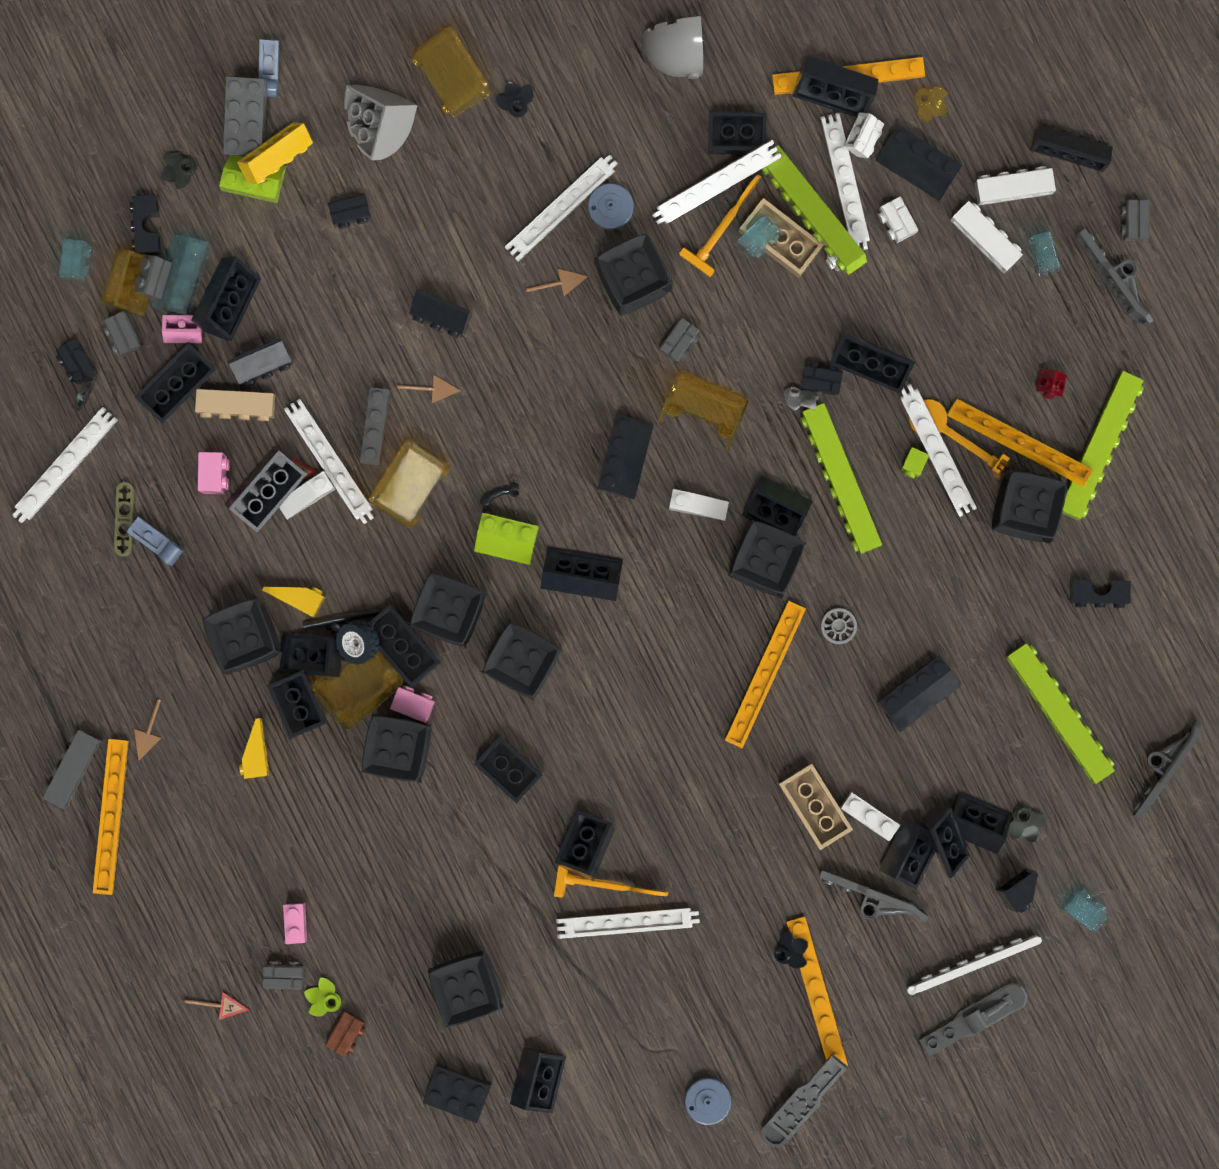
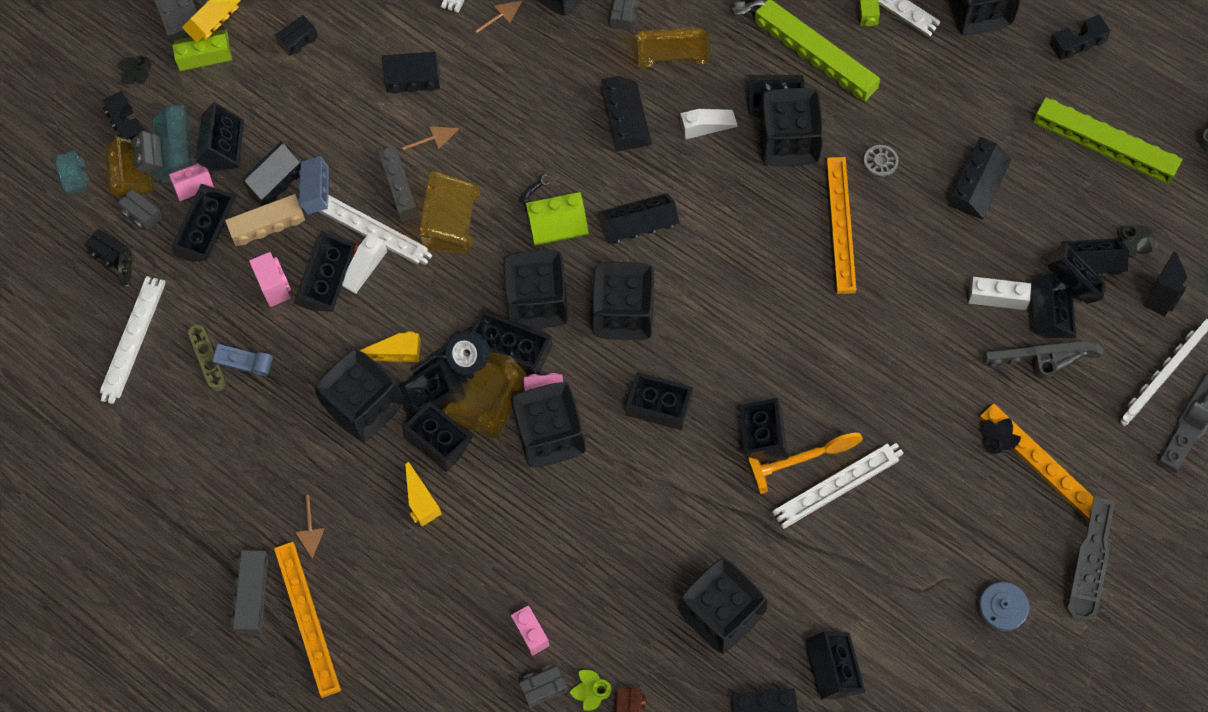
camera: 20 degrees left, 20 degrees down
(294, 392) = (314, 185): none -> sand blue brick
(815, 806) = (948, 305): tan brick -> none

